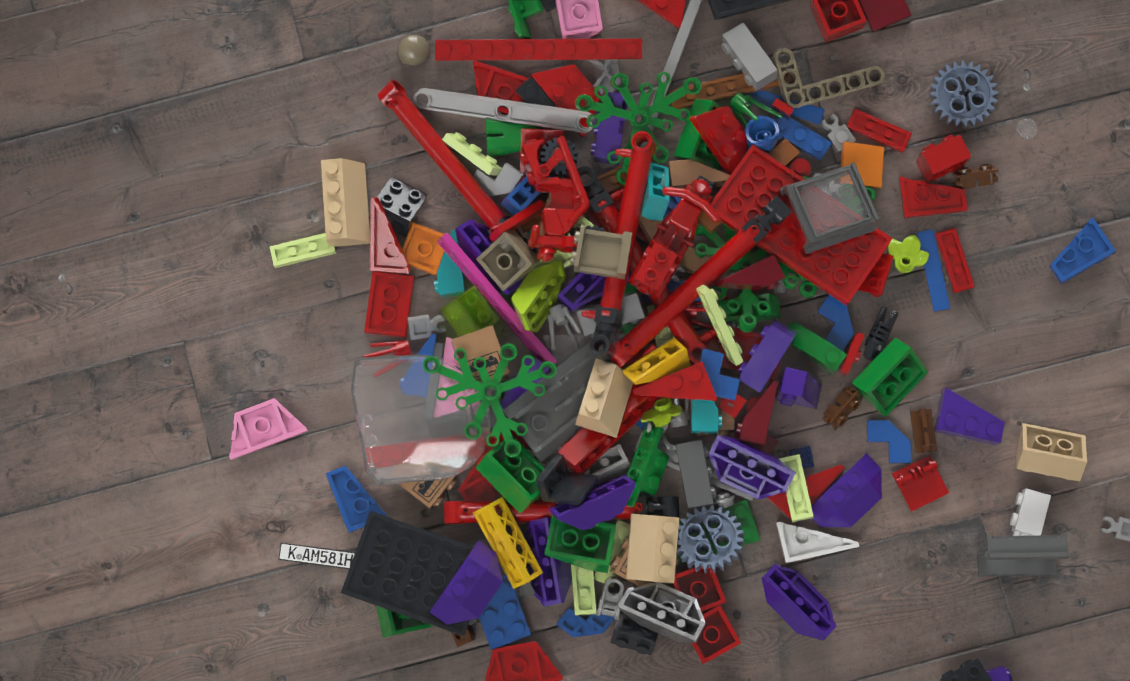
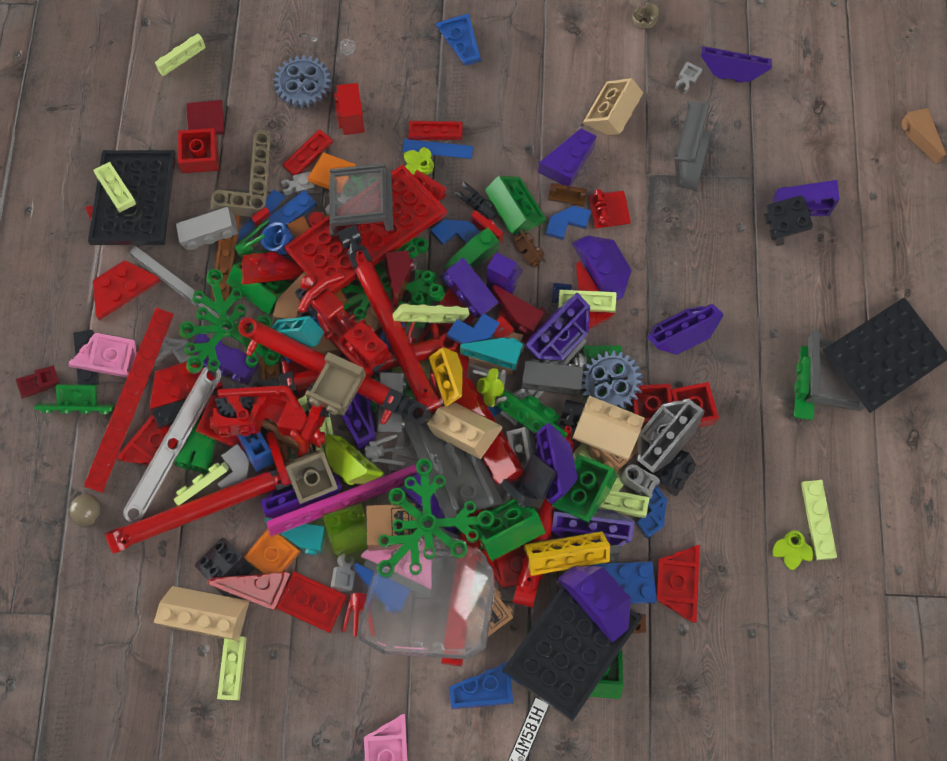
camera: 80 degrees left, 10 degrees down
(687, 383) = (474, 354): red wing -> none
(804, 543) = (634, 312): white wing -> none
(928, 199) = (379, 133): red wing -> none
(967, 176) = (373, 87): reddish brown hinge -> none
(1029, 513) = (658, 136): white hinge -> none

